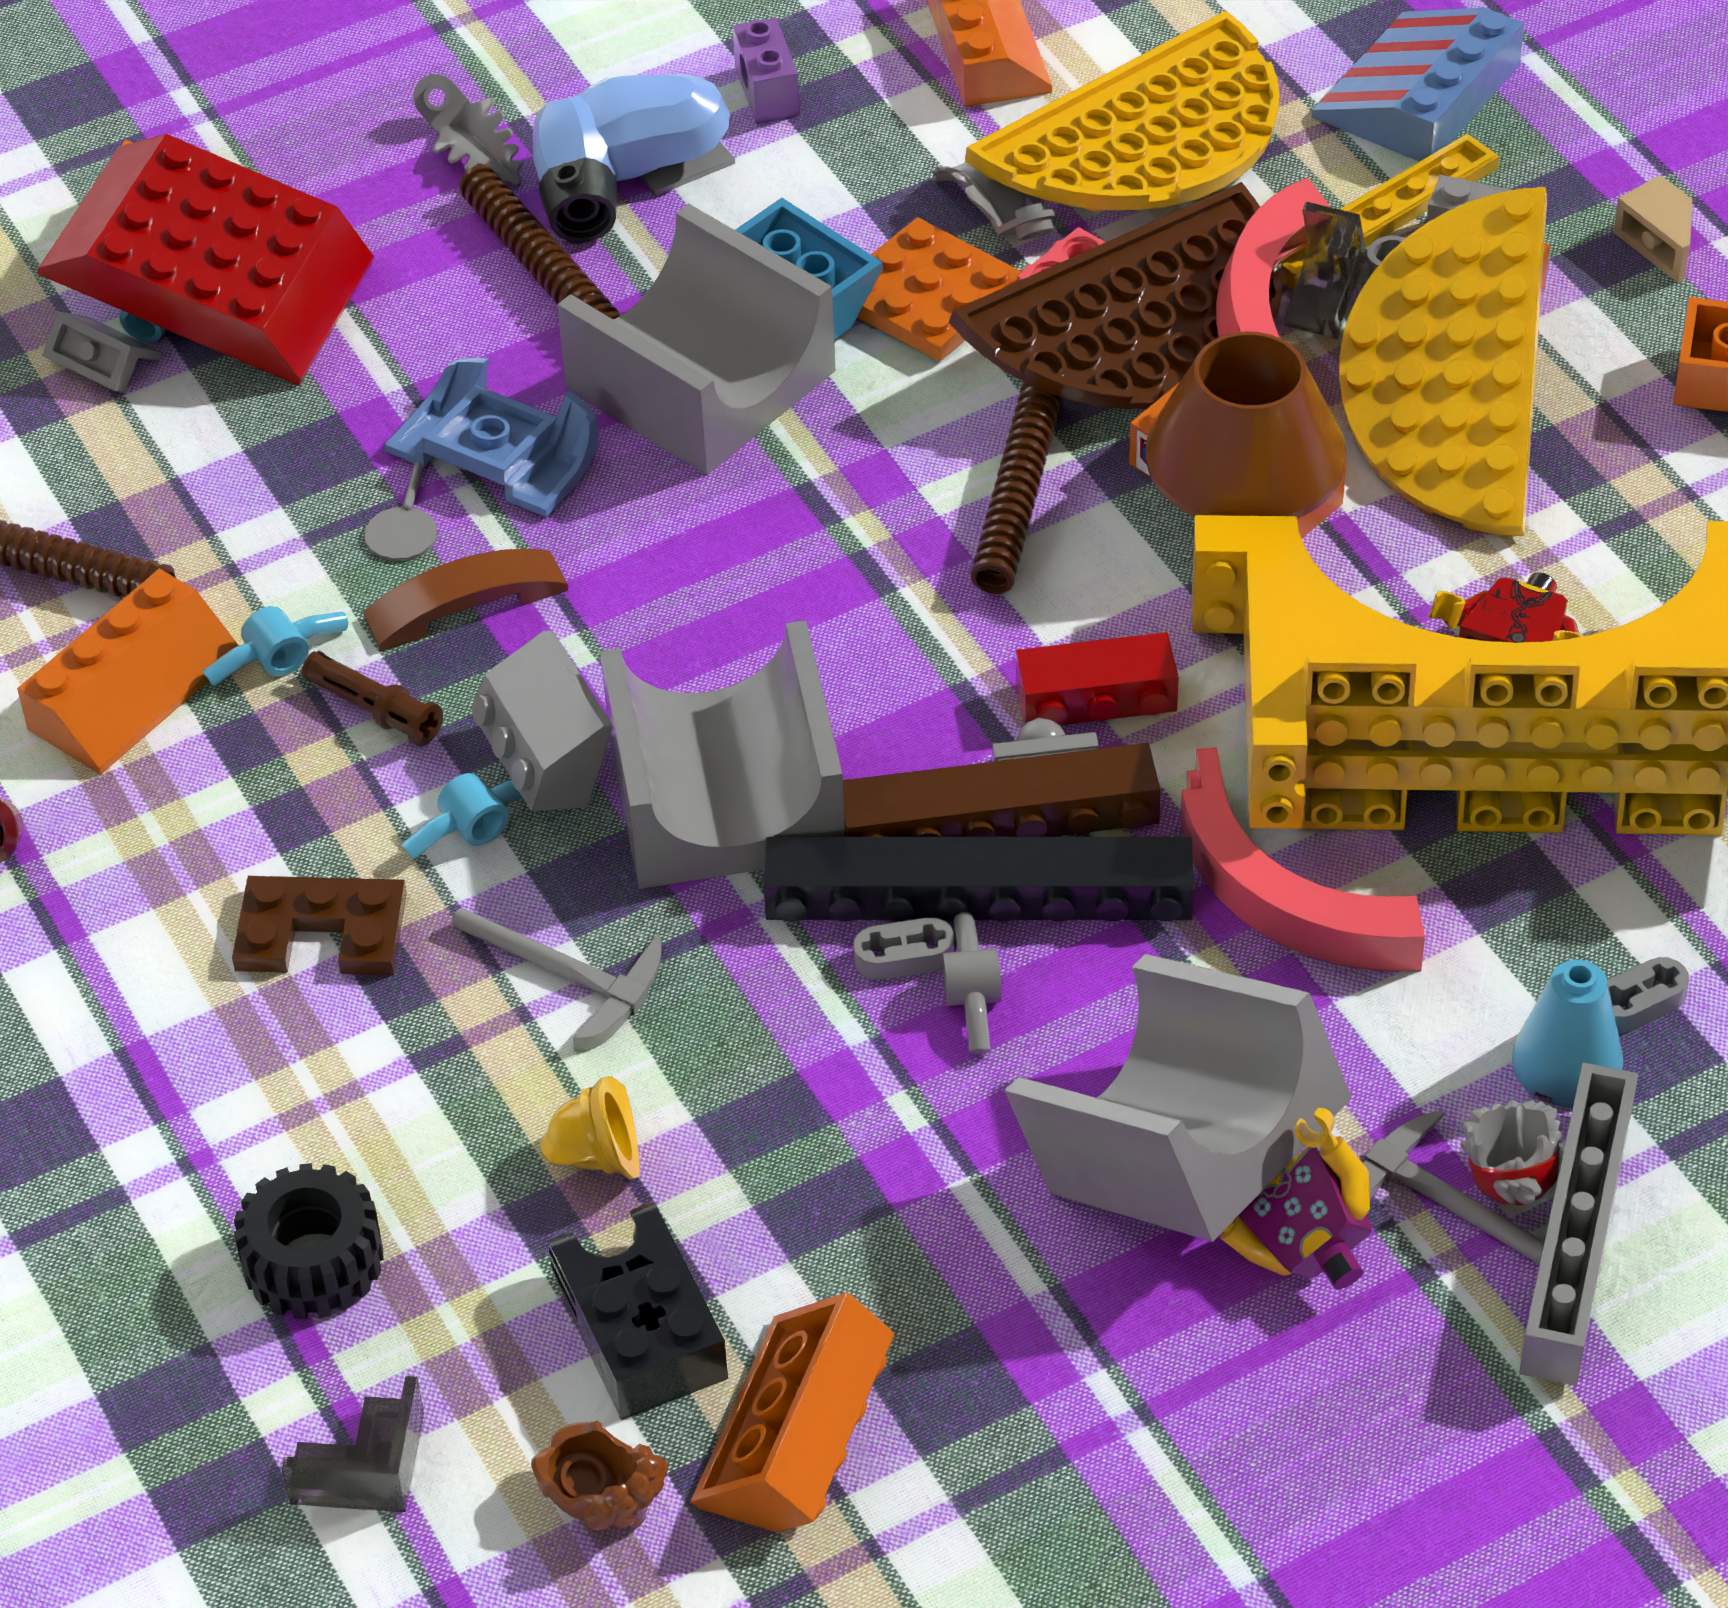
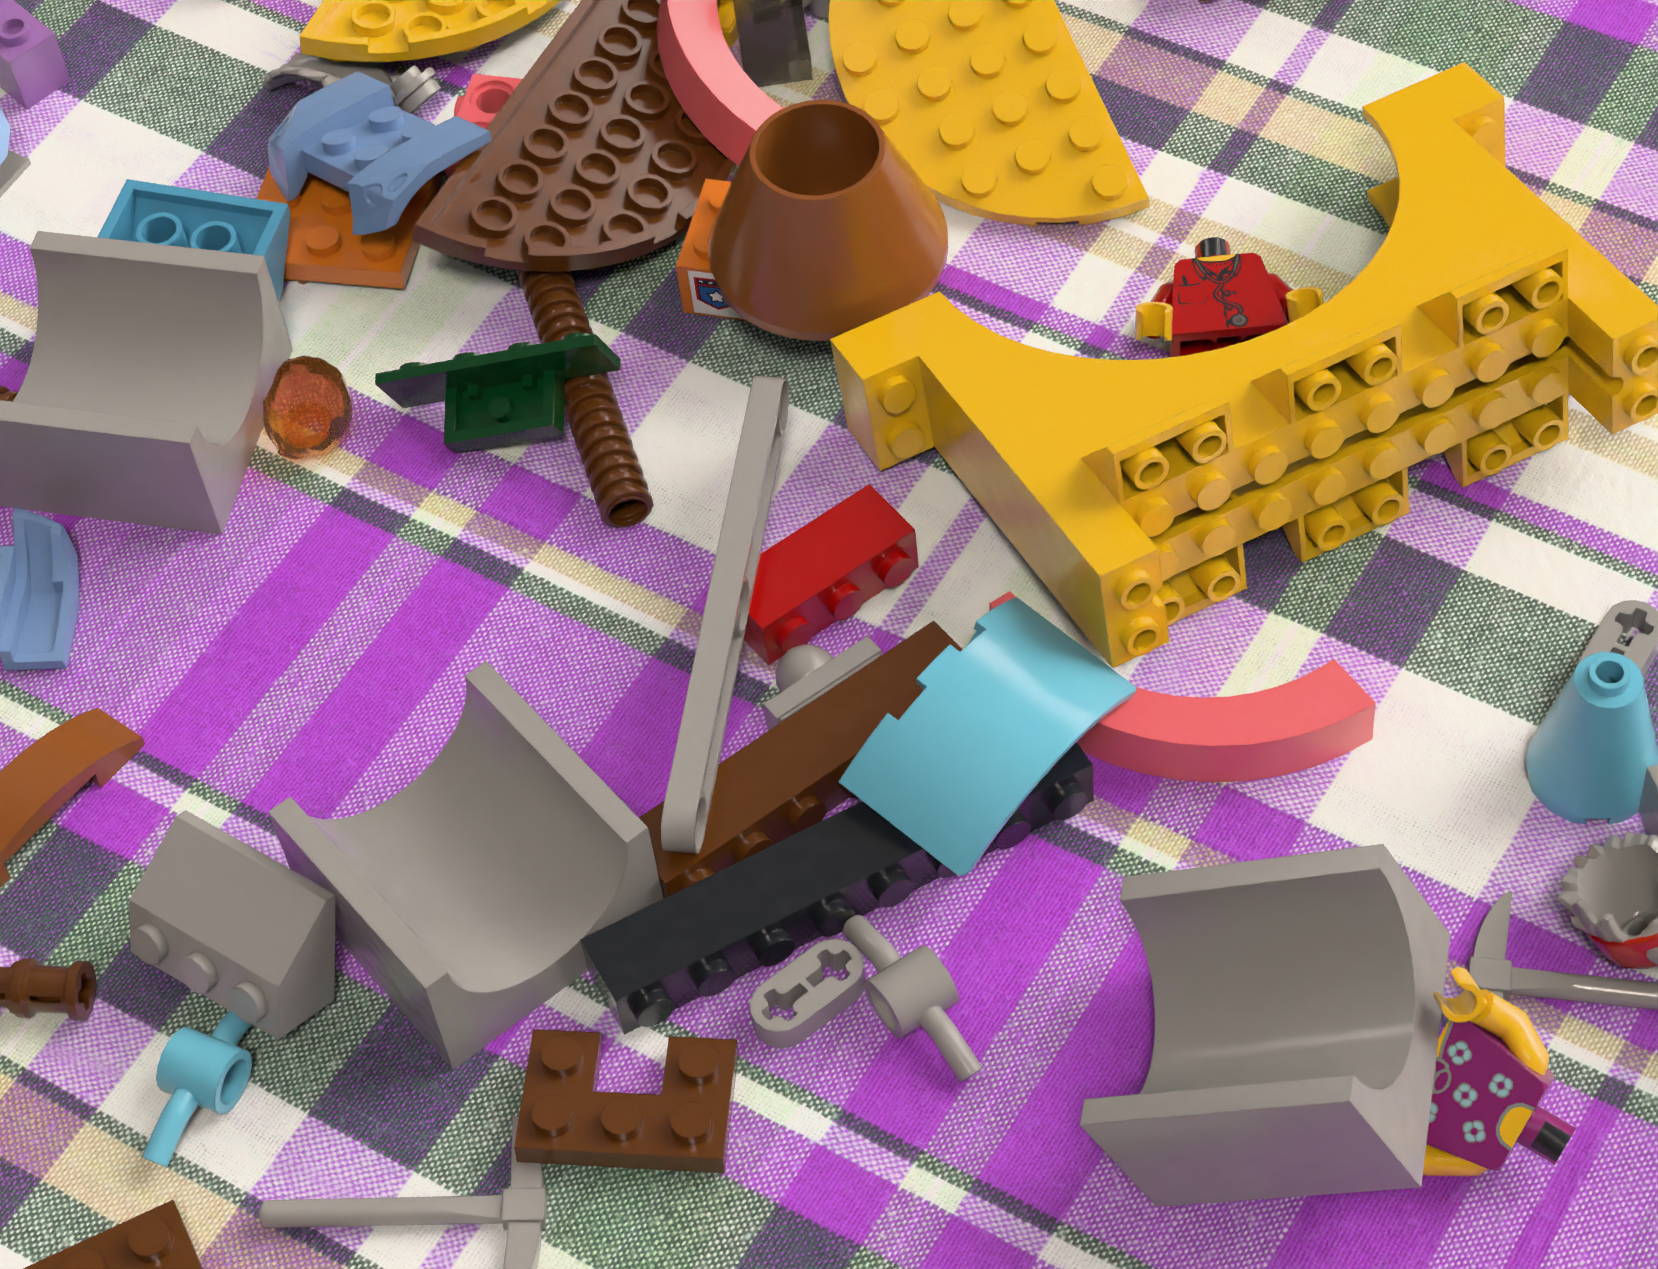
camera: 25 degrees left, 5 degrees up
(694, 954) = (574, 1124): none -> reddish brown plate
(812, 411) = (307, 408): none -> clear orange hair
(952, 458) = (501, 393): none -> dark green bracket
(962, 245) = (367, 148): none -> medium blue piece
(1002, 668) = (725, 618): none -> light grey beam
(1126, 821) = (983, 733): none -> medium azure panel

